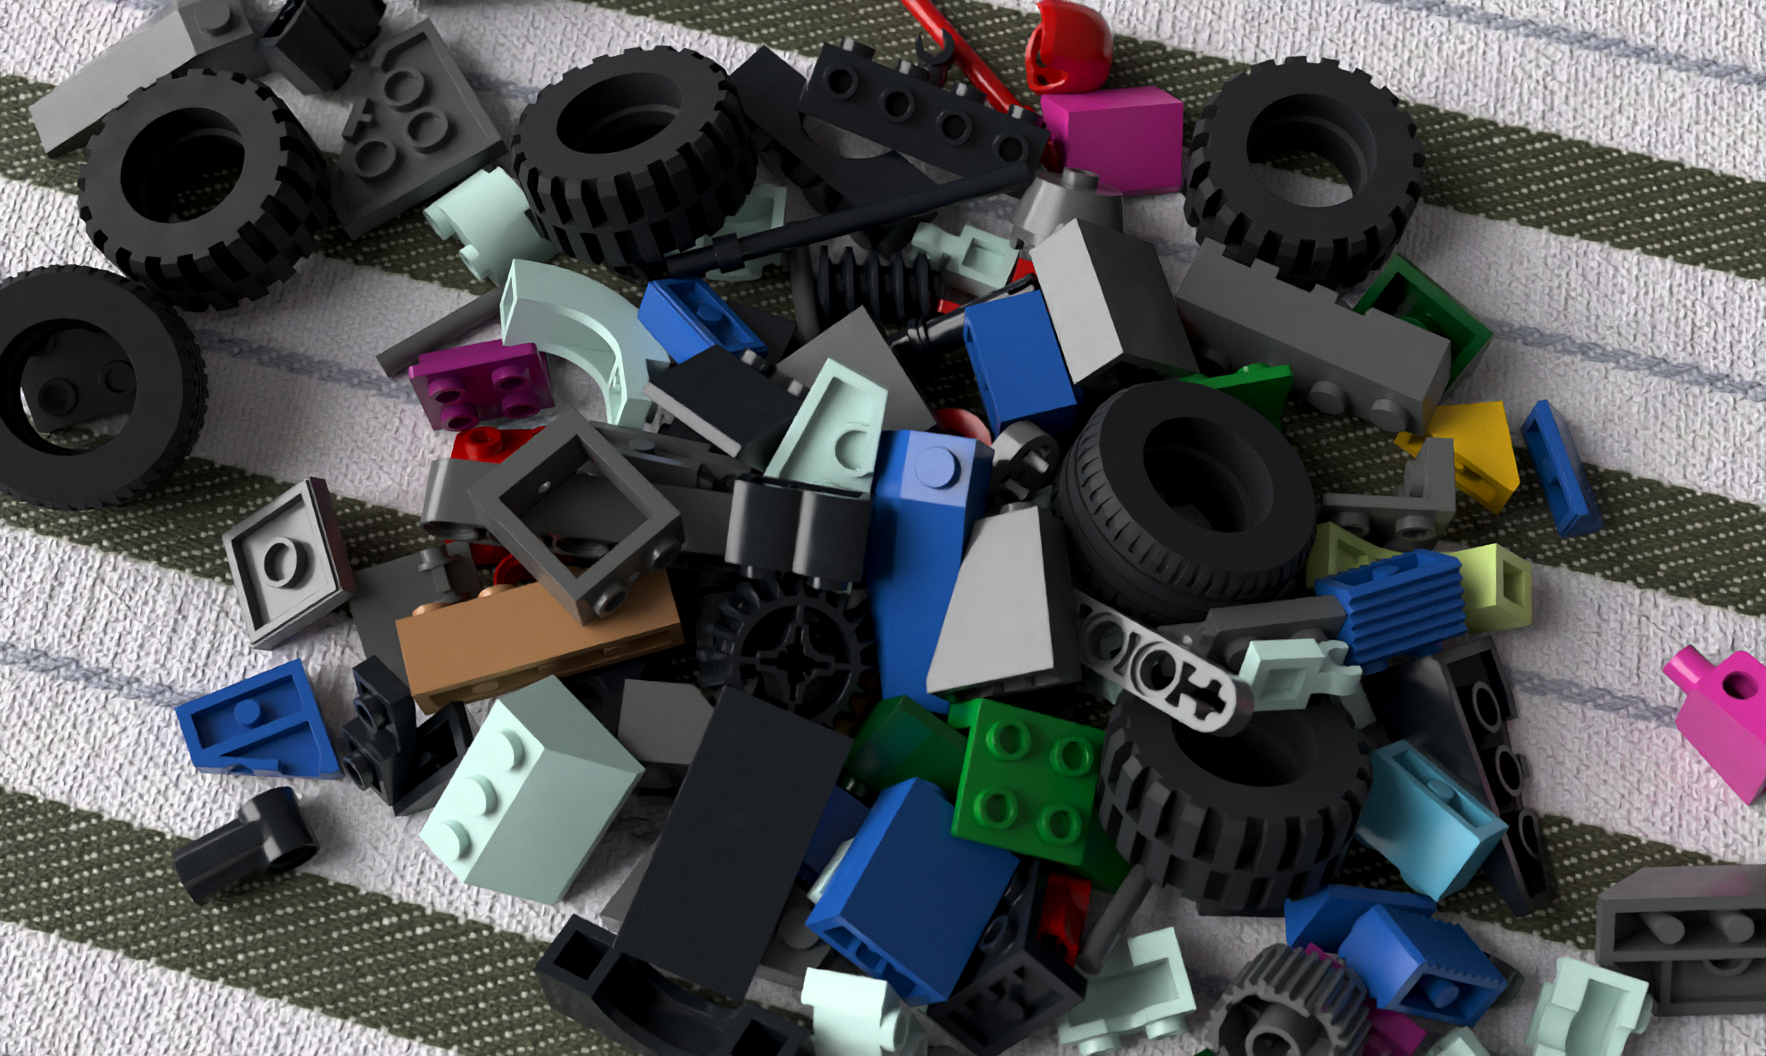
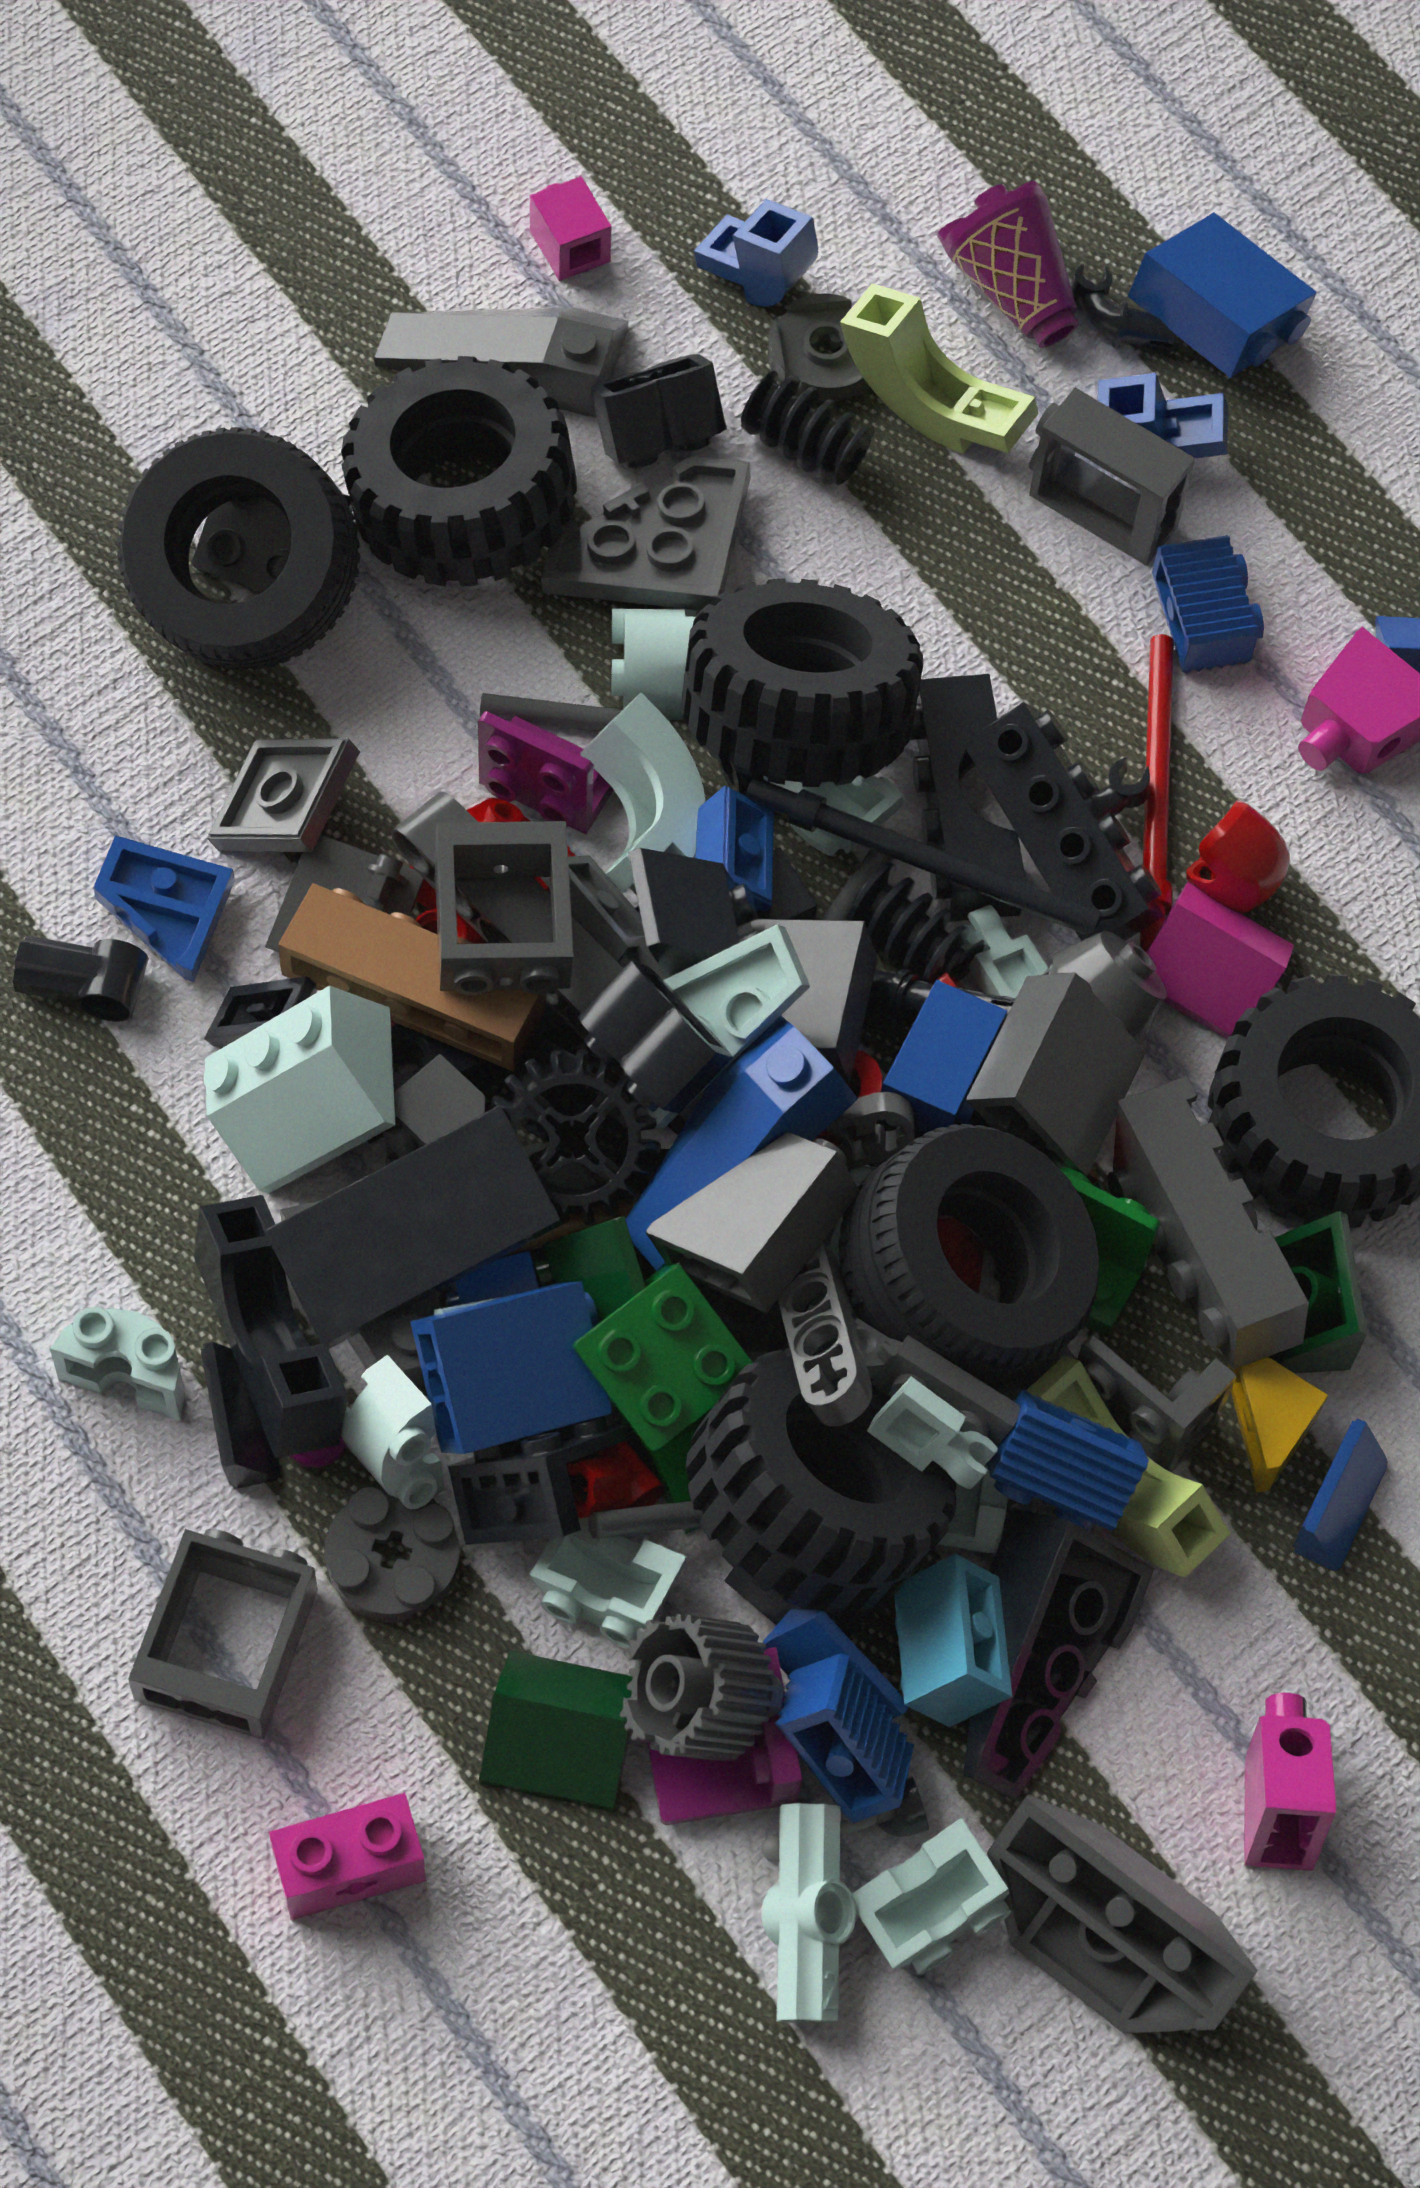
camera: 35 degrees right, 5 degrees down
(383, 734) = (240, 964): black slope -> none

